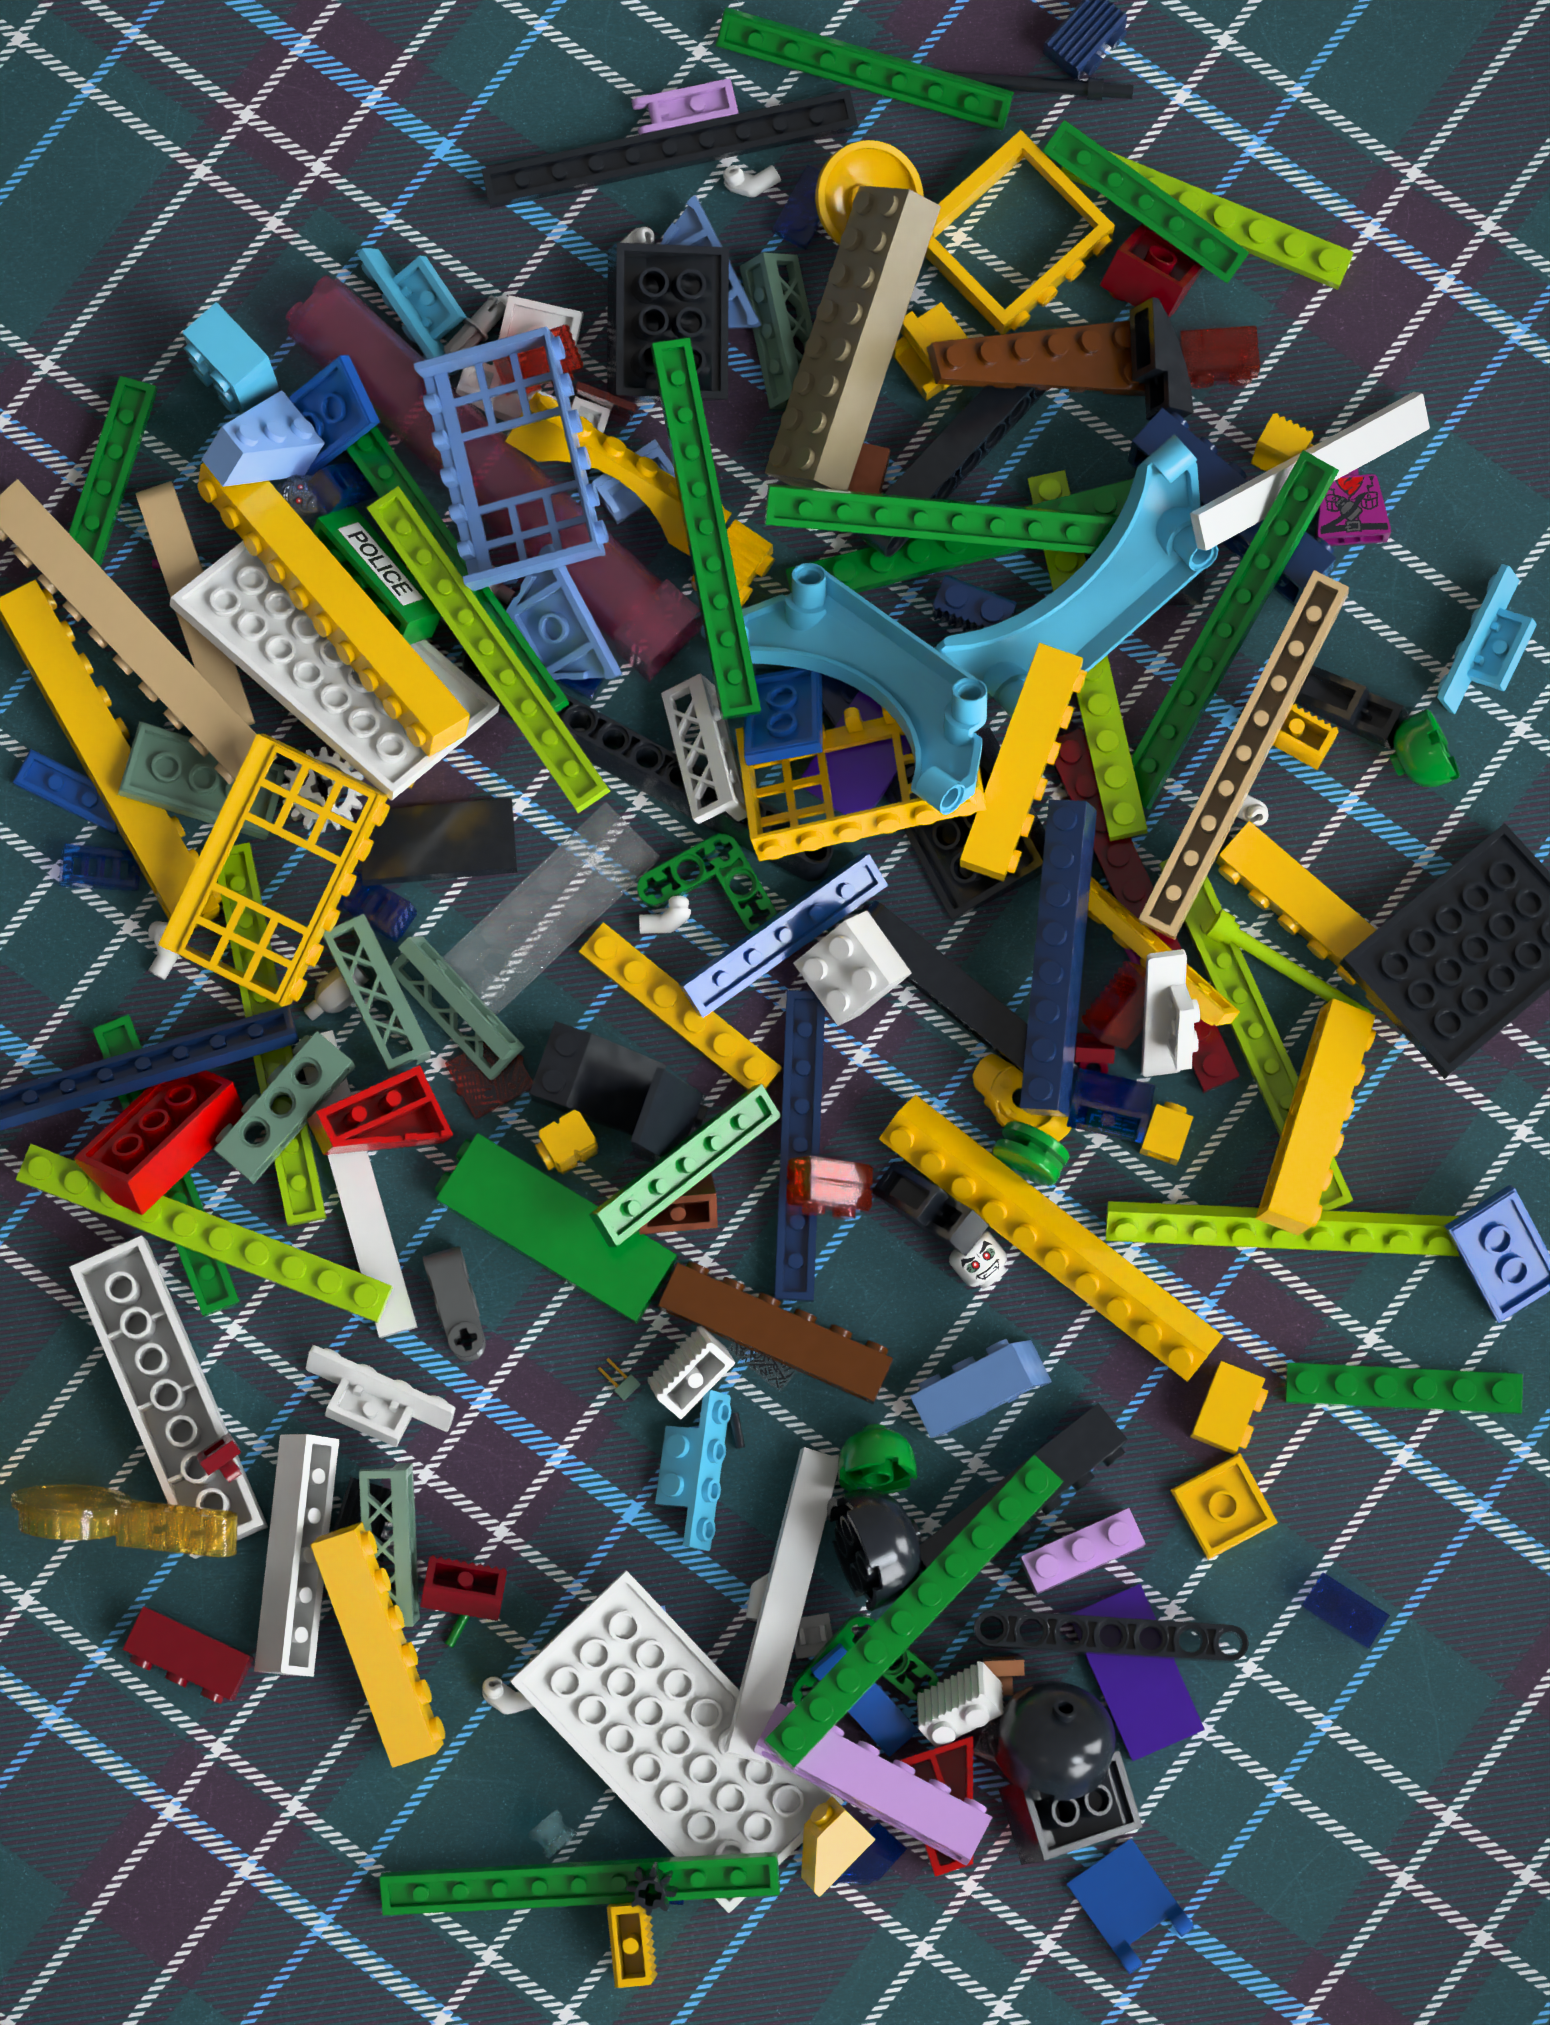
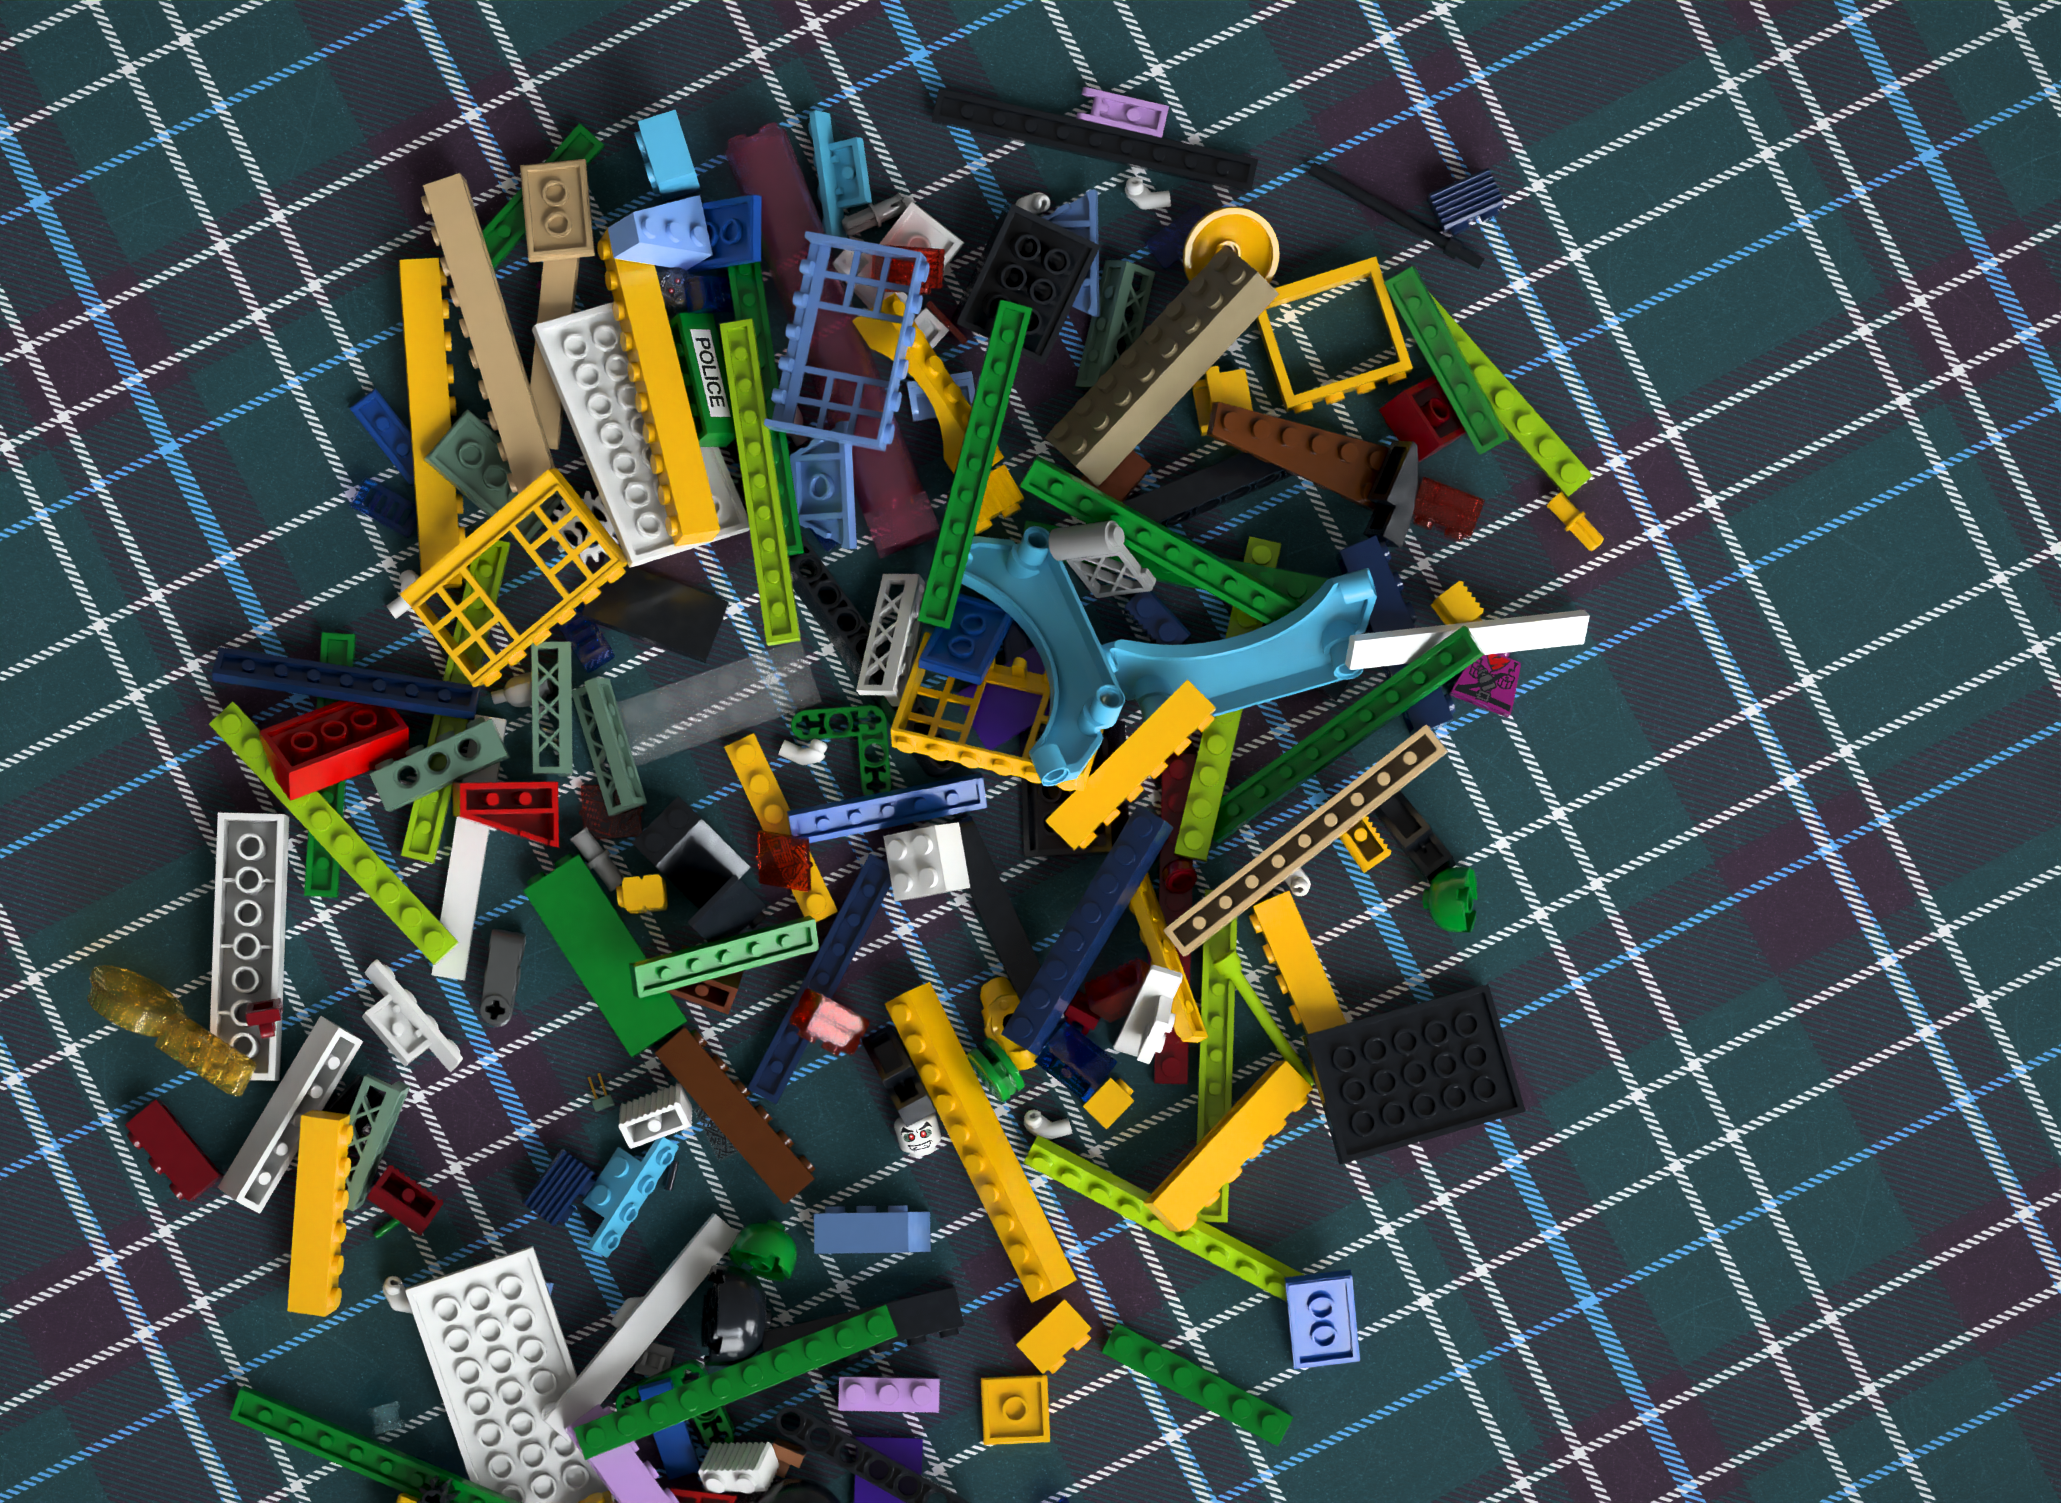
camera: 20 degrees right, 5 degrees up
(138, 473) = (557, 210): none -> tan tile
(500, 1130) = (598, 859): none -> light grey pin
(624, 1497) = (559, 1188): none -> dark blue brick
(700, 1038) = (784, 861): none -> clear red piece
(864, 68) = (1278, 147): green tile -> none
(871, 550) = (1094, 544): none -> light grey piece
(1101, 1192) = (1039, 1125): none -> white arm
(1126, 859) = (1179, 875): none -> dark red tile
(1359, 307) = (1575, 521): none -> yellow axle
(1491, 644) = (1547, 838): medium azure bracket -> none

